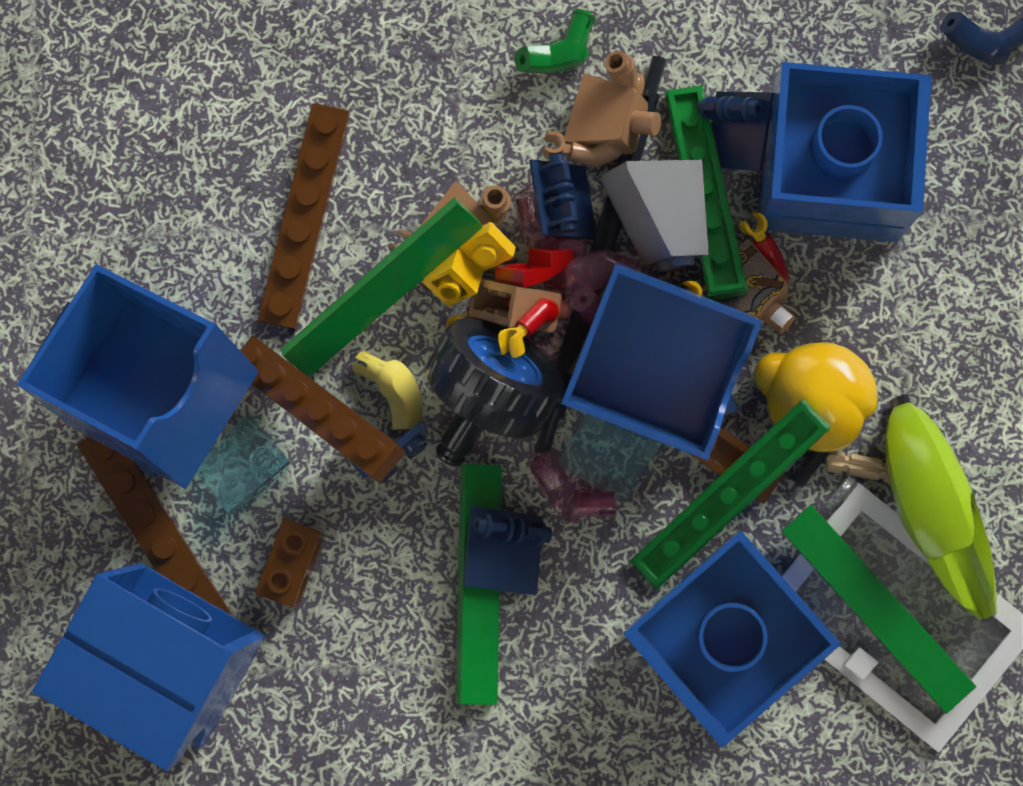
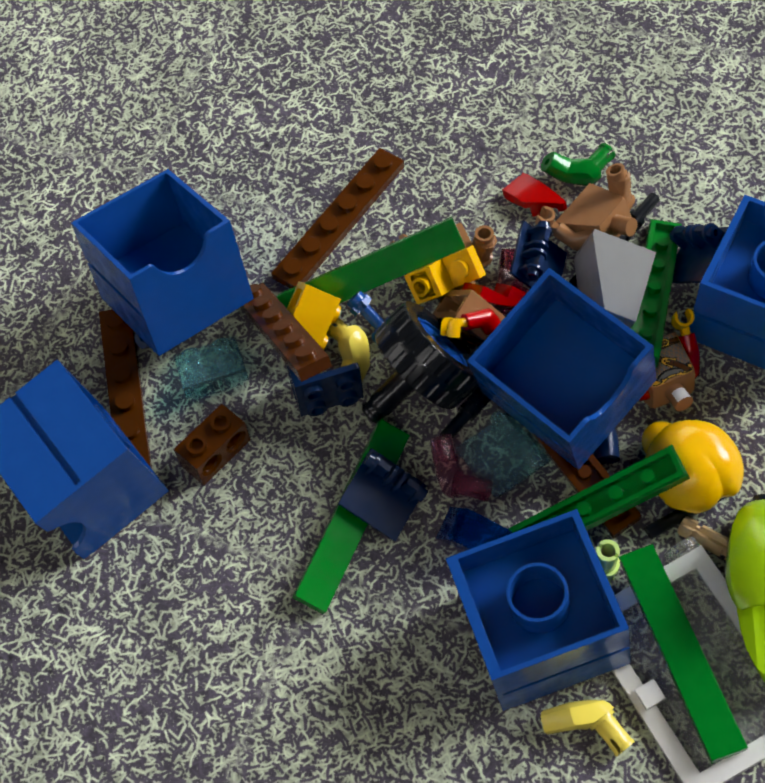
camera: 25 degrees right, 20 degrees down
(337, 365) = (314, 311): none -> yellow slope
(420, 345) = (360, 304): none -> blue bar
(519, 105) = (532, 194): none -> red slope
(617, 560) = (468, 529): none -> clear blue slope
(779, 541) = (608, 555): none -> yellowish green pin
(807, 711) = (586, 715): none -> light yellow arm

